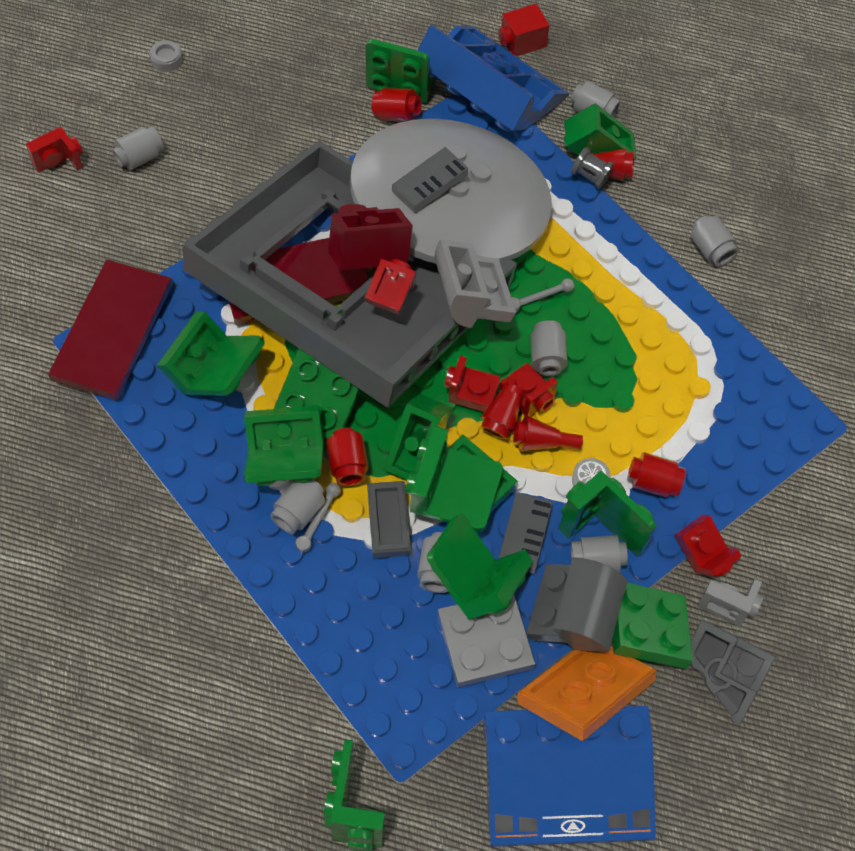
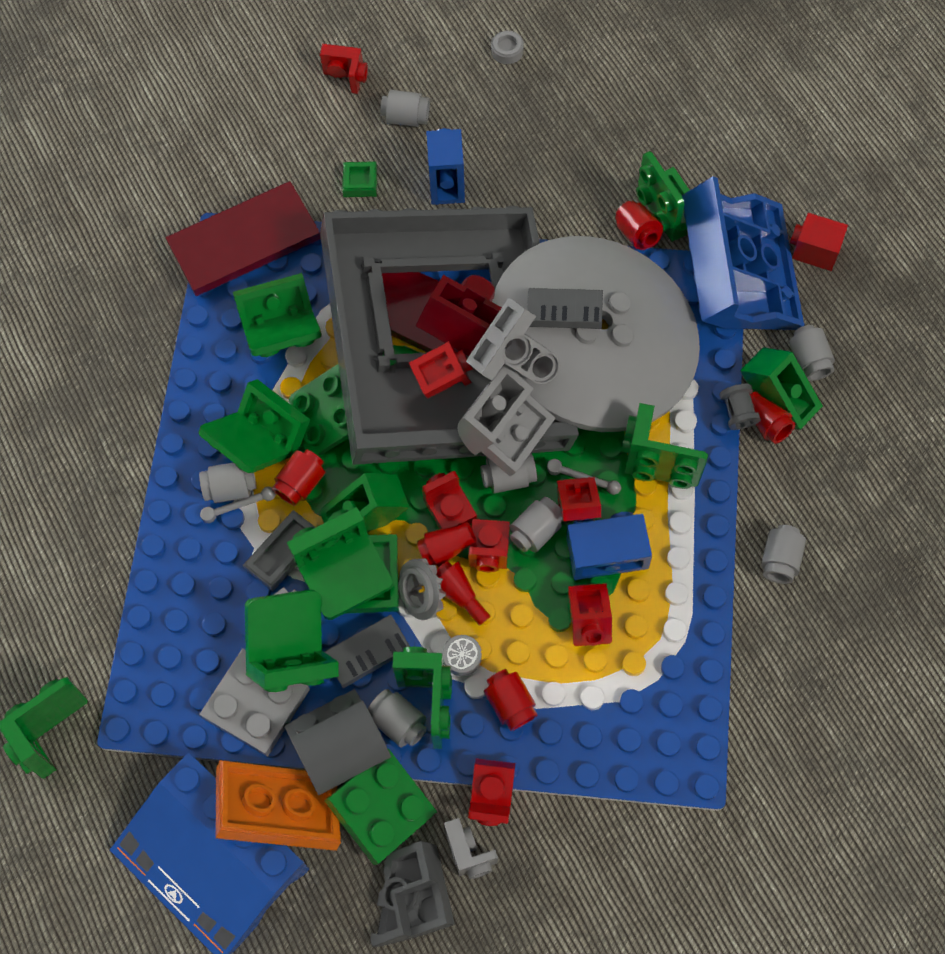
camera: 50 degrees right, 5 degrees up
(153, 224) = (359, 179): none -> green tile
(220, 161) = (446, 166): none -> blue brick
(432, 223) = (522, 353): none -> light grey tile
(489, 335) = (499, 481): none -> light grey brick
(528, 468) = (411, 578): none -> light grey gear
(563, 304) = (578, 499): none -> red bracket
(574, 241) = (658, 460): none -> green bracket
(608, 322) = (608, 545): none -> blue brick
(645, 374) = (590, 614): none -> red bracket

